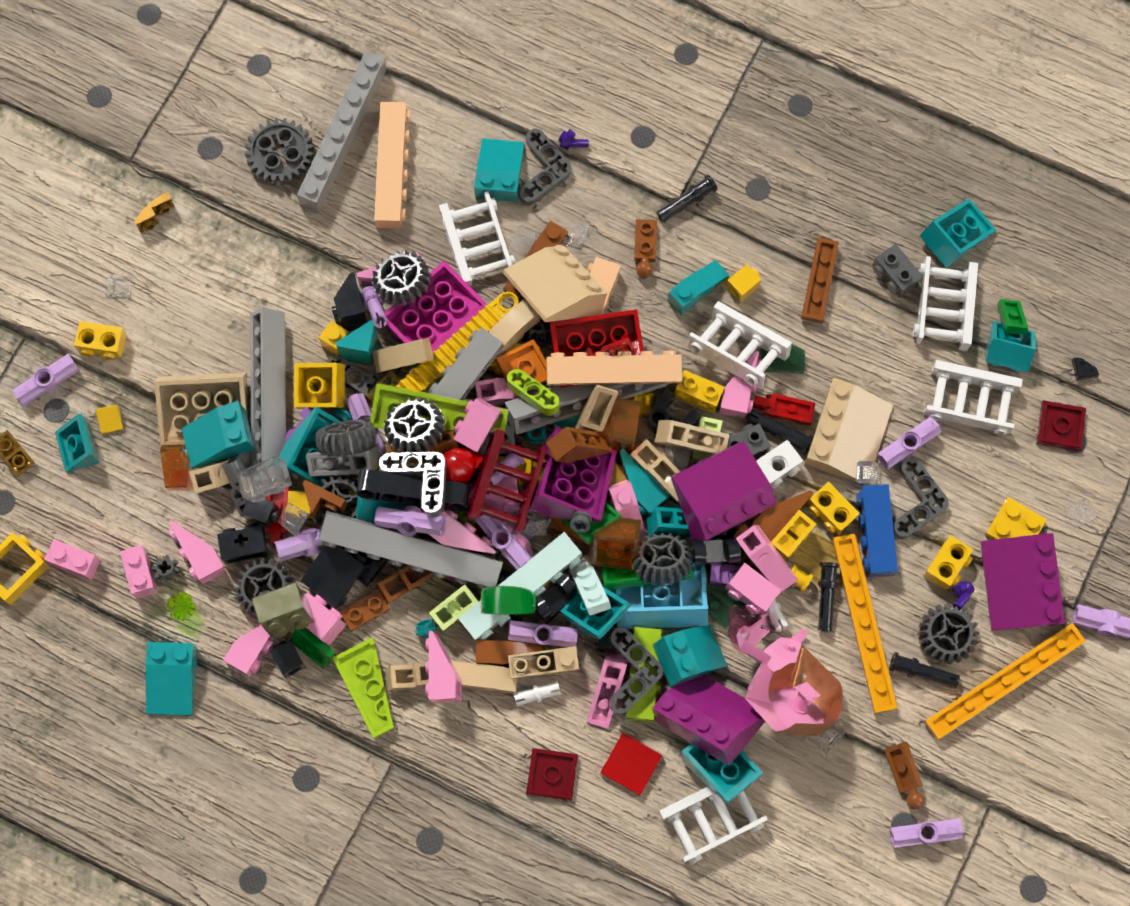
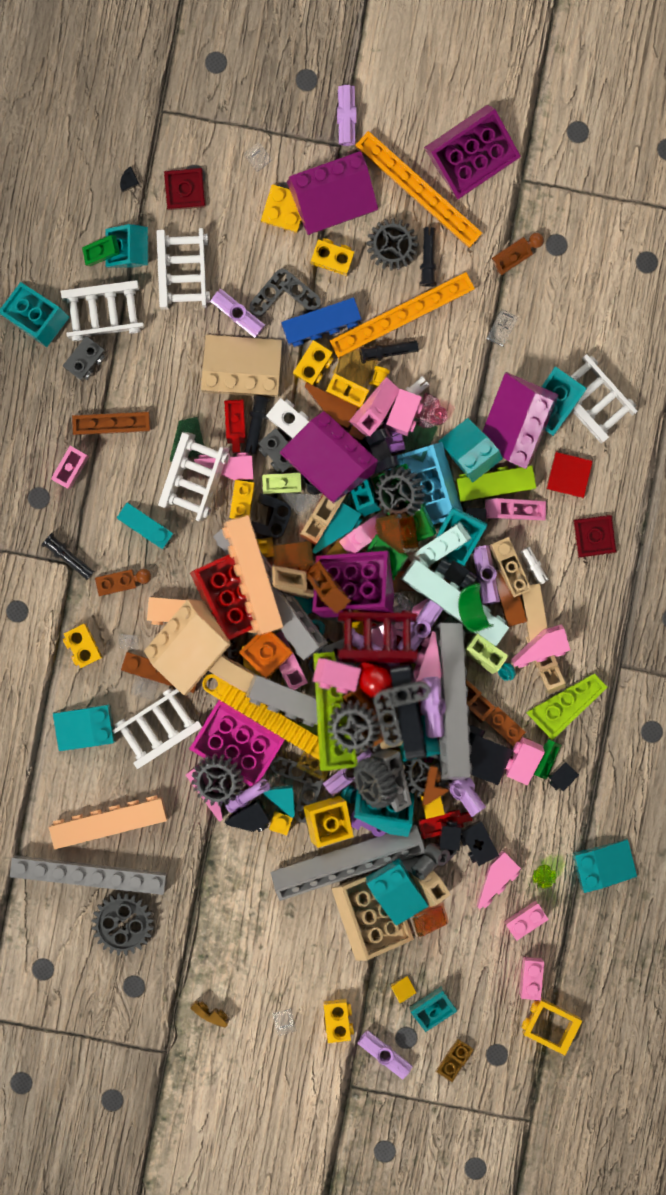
camera: 100 degrees left, 15 degrees up
(162, 564) = (513, 896): dark grey gear -> none
(249, 650) = (566, 810): bright pink slope -> none
(263, 479) = (427, 840): clear brick -> none
(269, 579) = (507, 822): dark grey gear -> none
(283, 610) = (532, 789): olive brick -> none
(293, 519) = (449, 806): clear slope -> none
(403, 355) = (285, 757): tan slope -> none
(536, 400) = (282, 640): lime beam -> none
(551, 168) = (74, 682): dark grey beam -> none
(568, 139) = (41, 674): dark purple plate -> none
(581, 521) = (393, 566): dark grey bush -> none
(588, 195) = (87, 643): none -> yellow brick
(623, 344) = (228, 574): red piece -> none
(641, 674) = (500, 485): dark grey beam -> none
(690, 437) = (289, 496): tan slope -> none
(744, 283) = (132, 487): yellow brick -> none
(778, 686) = (487, 364): bright pink piece -> none
(782, 223) = (70, 467): none -> bright pink brick
(868, 473) = (273, 340): clear slope -> none
(940, 831) = (555, 214): lavender piece -> none
(962, 591) = (352, 239): dark purple plate -> none
(1036, 755) = (473, 151): none -> magenta slope

